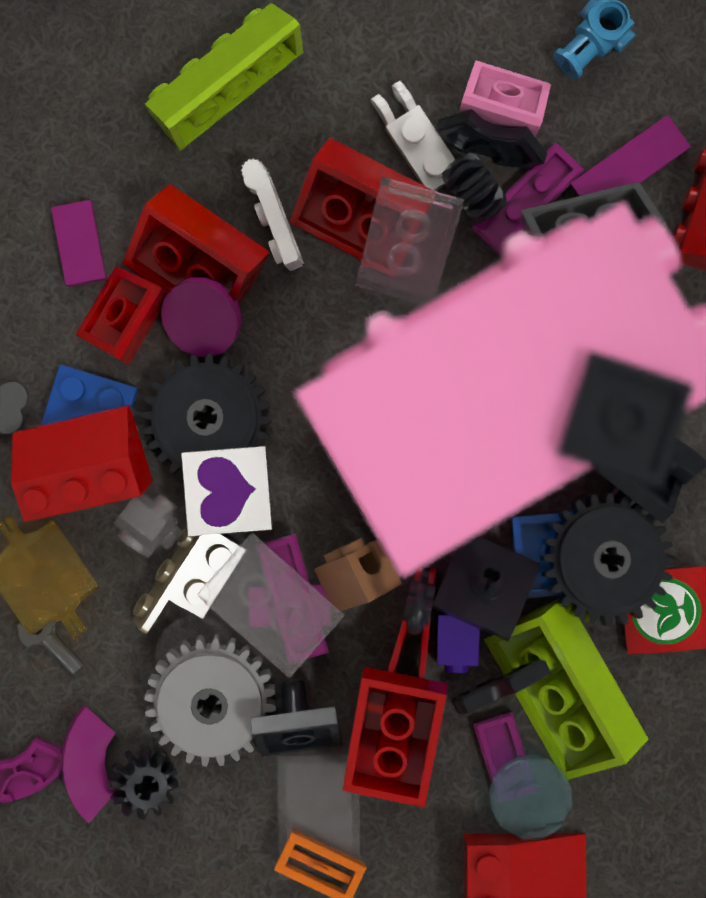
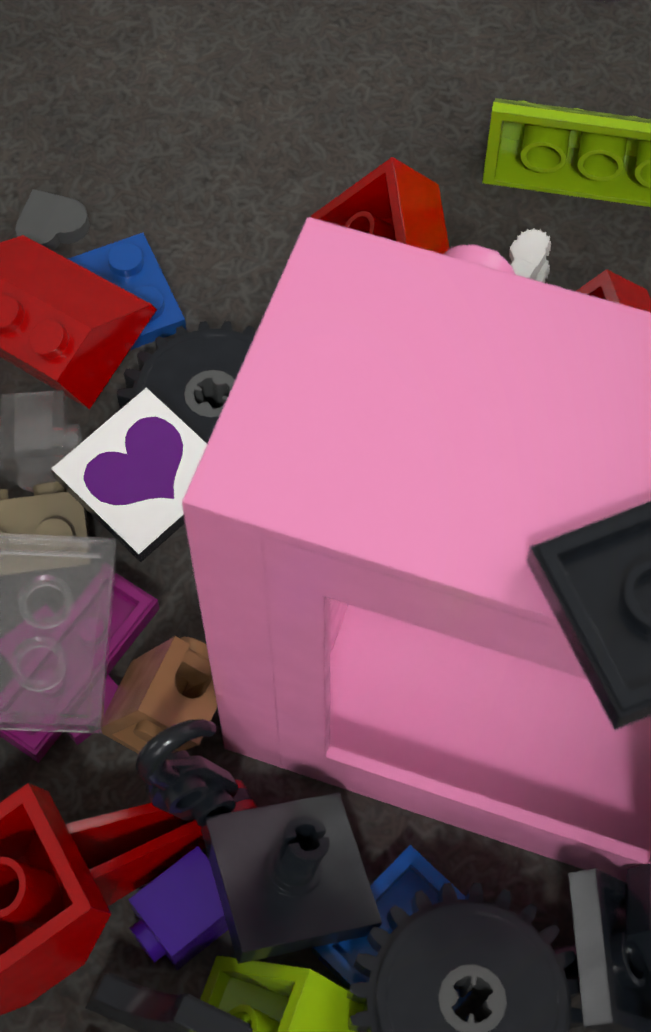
camera: 50 degrees right, 25 degrees down
(79, 243) = (292, 163): magenta tile -> none
(122, 315) = (245, 255): red slope -> none

